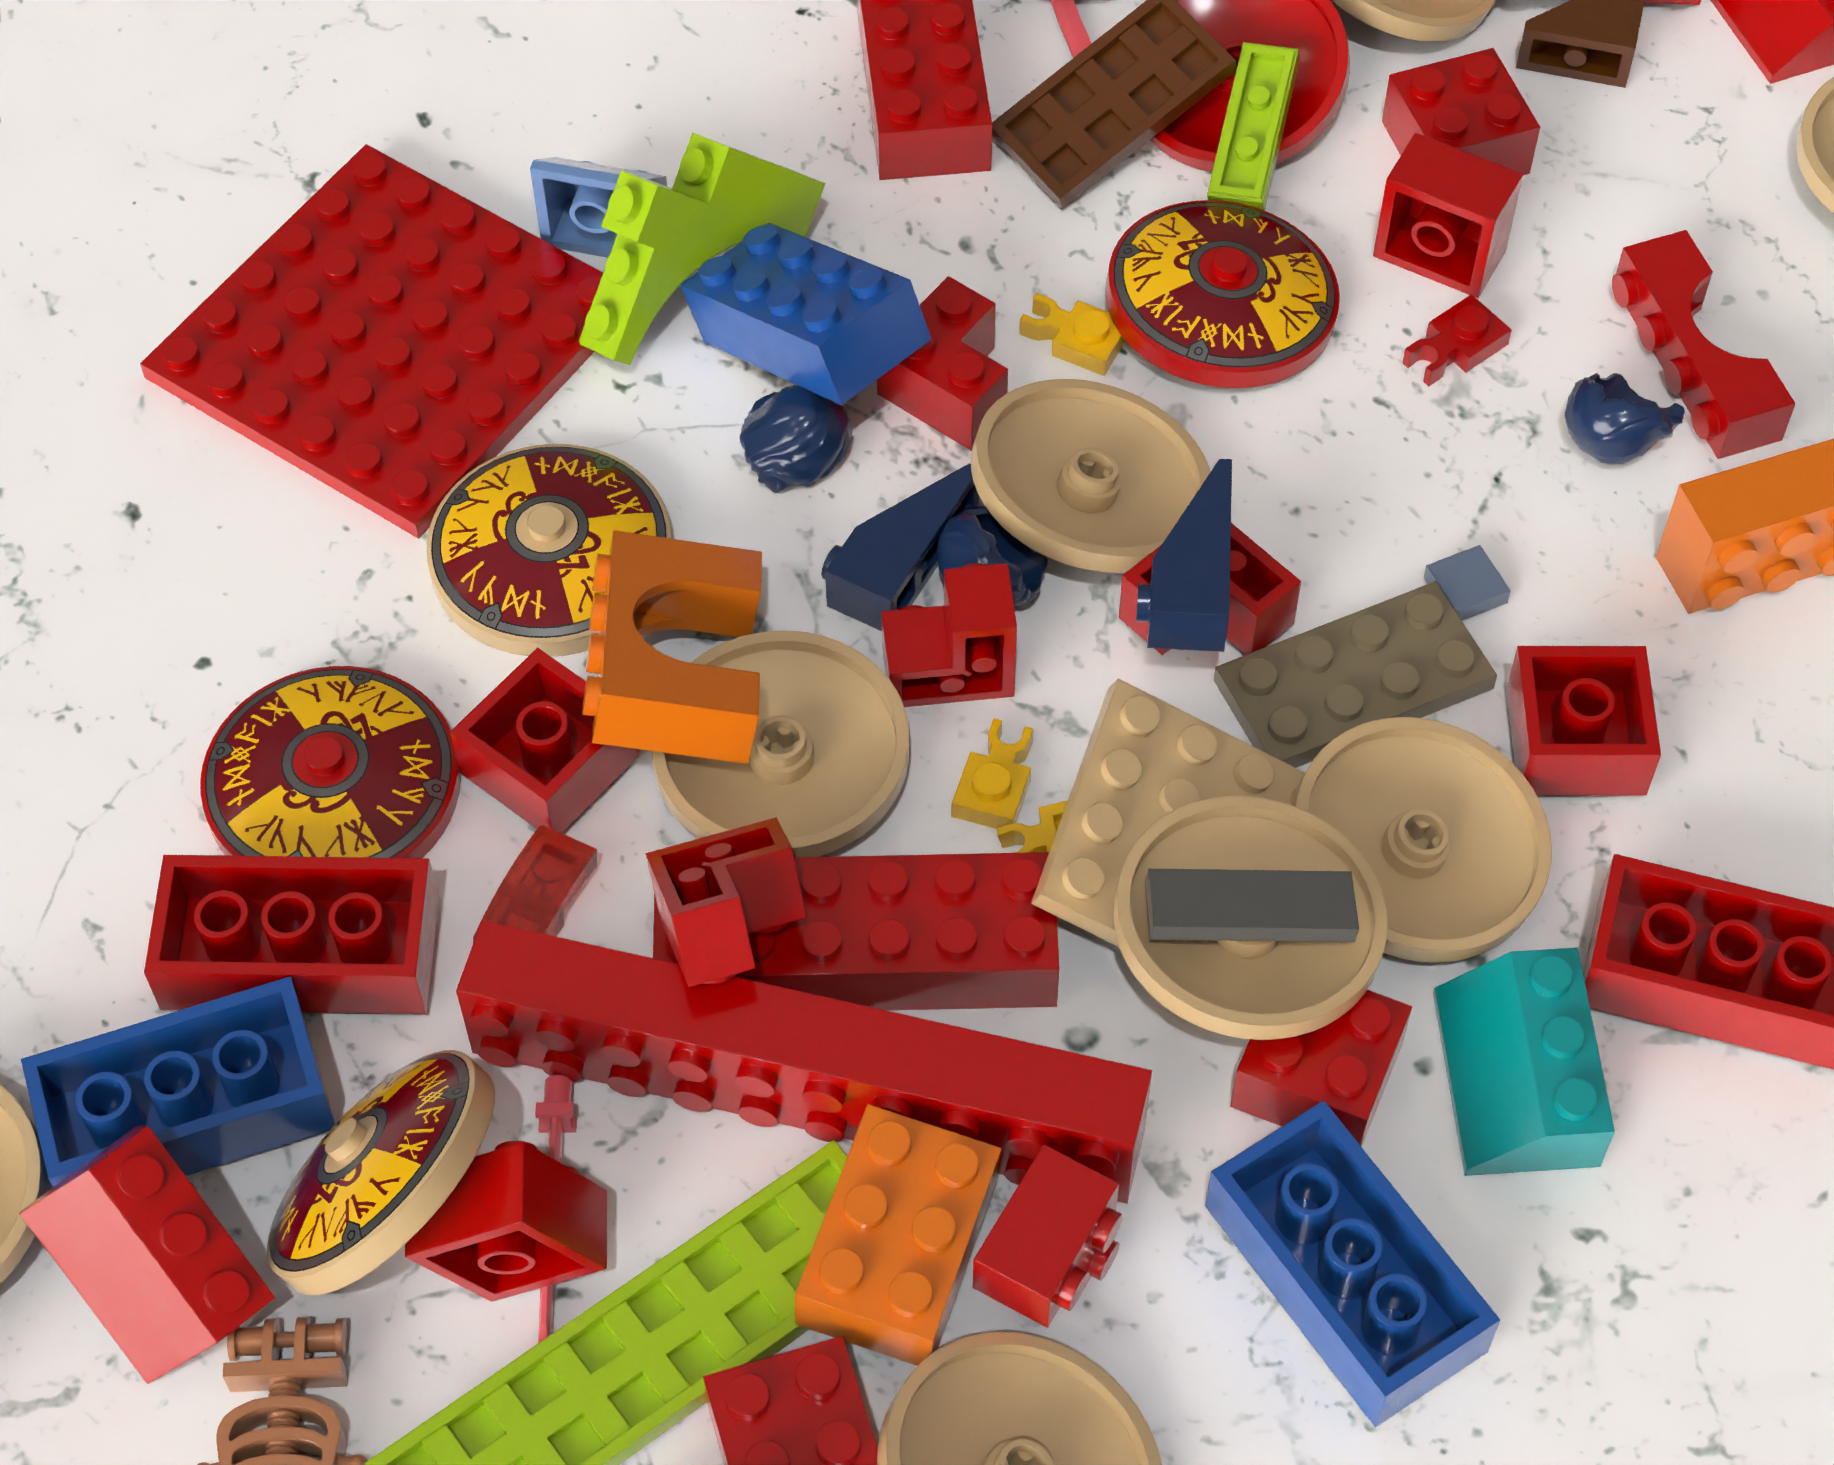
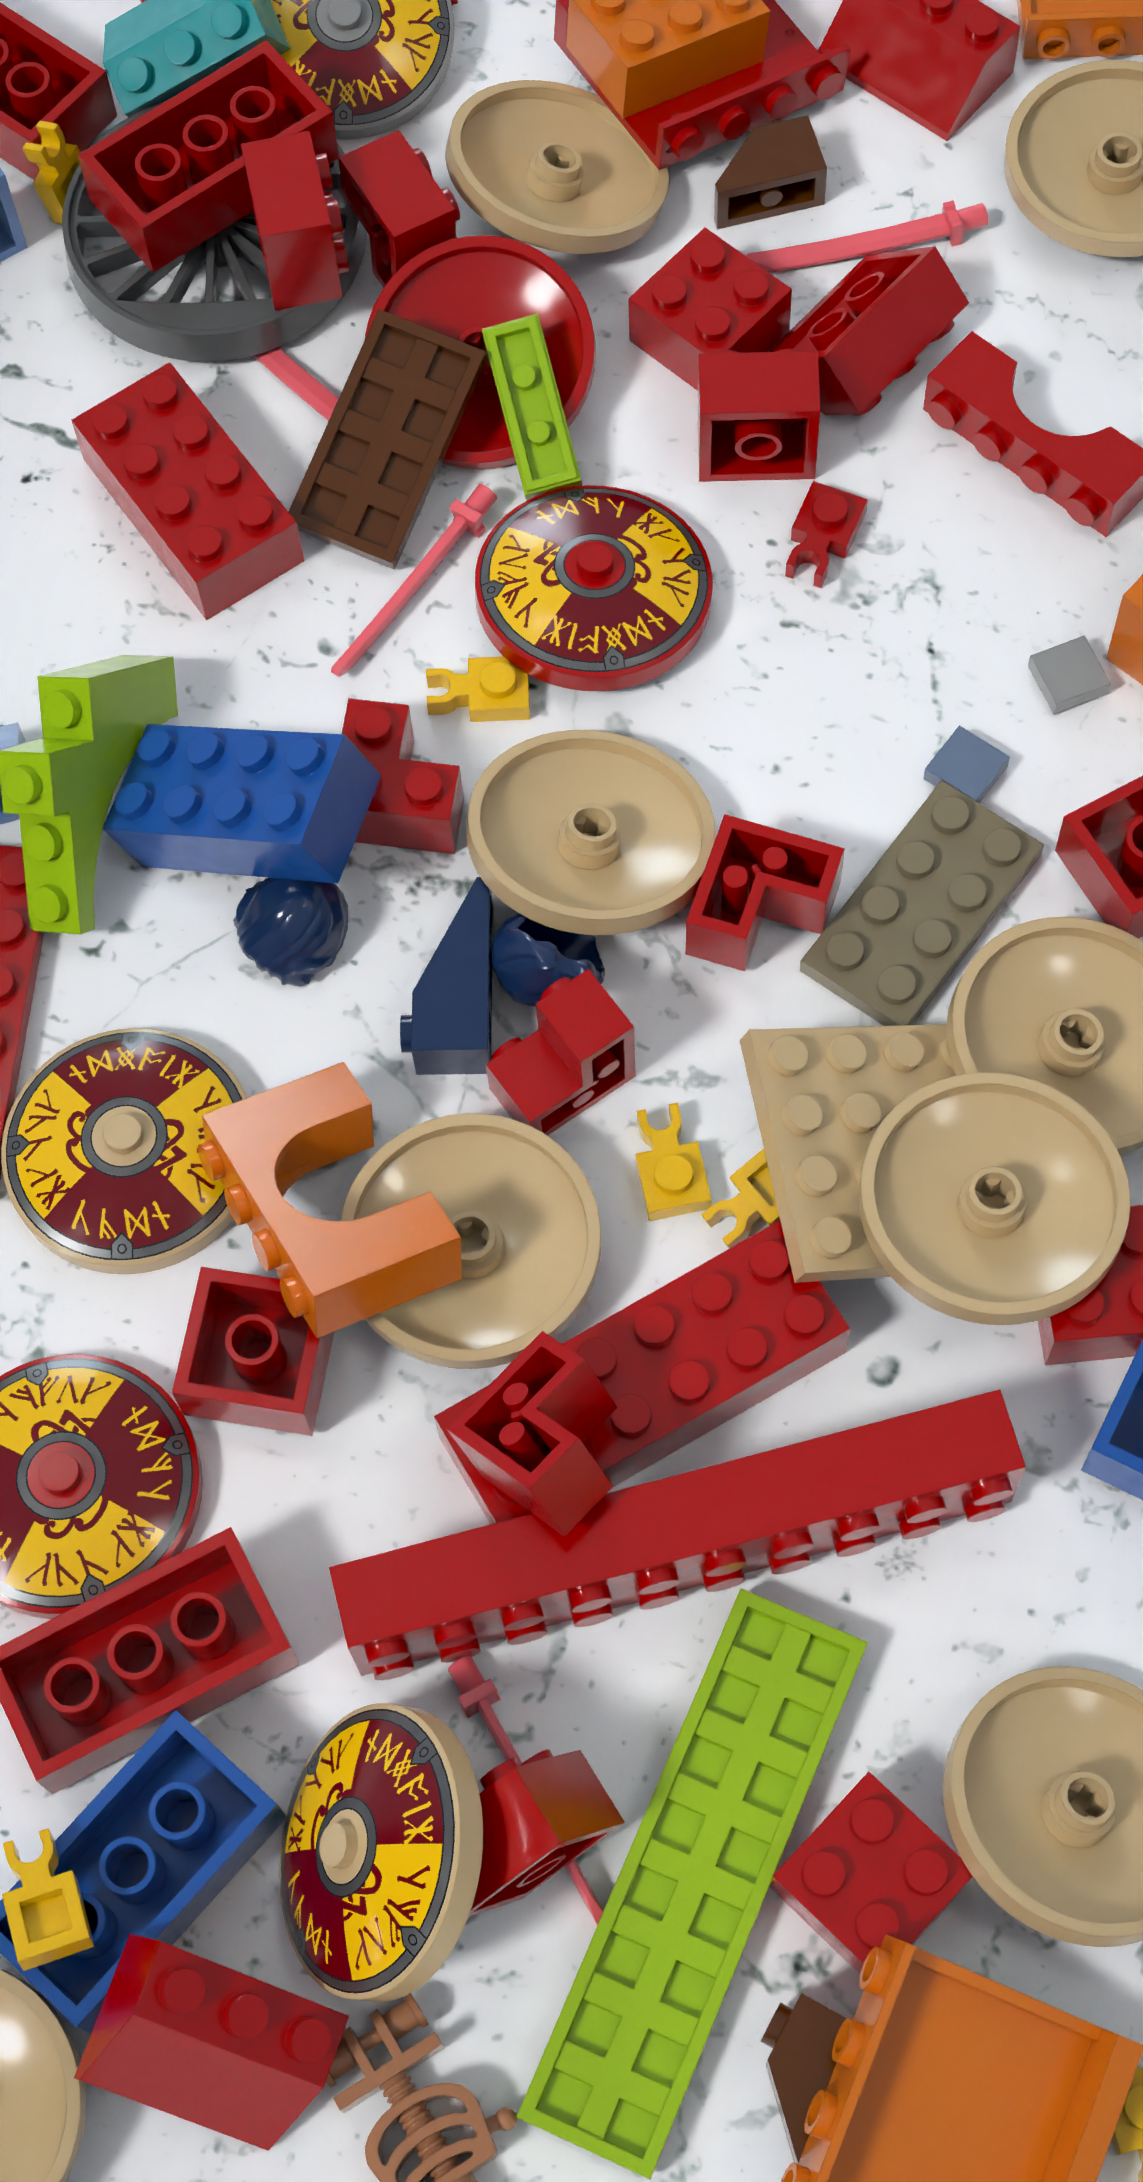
camera: 25 degrees left, 10 degrees up
(82, 1069) = (48, 1911): none -> yellow plate
(542, 882) = (331, 1498): clear red slope -> none
(897, 1236) = (862, 1653): orange brick -> none
(1050, 1238) = (990, 1586): red brick -> none
(1146, 194) = (466, 518): none -> coral sword
(1191, 573) = (762, 905): dark blue slope -> none
(1251, 905) = (997, 1191): dark grey tile -> none
(1604, 198) = (876, 325): none -> red slope
(1610, 551) = (1069, 674): none -> light grey tile
(1616, 422) = (1010, 548): dark blue hair -> none
(1725, 145) = (949, 223): none -> coral sword

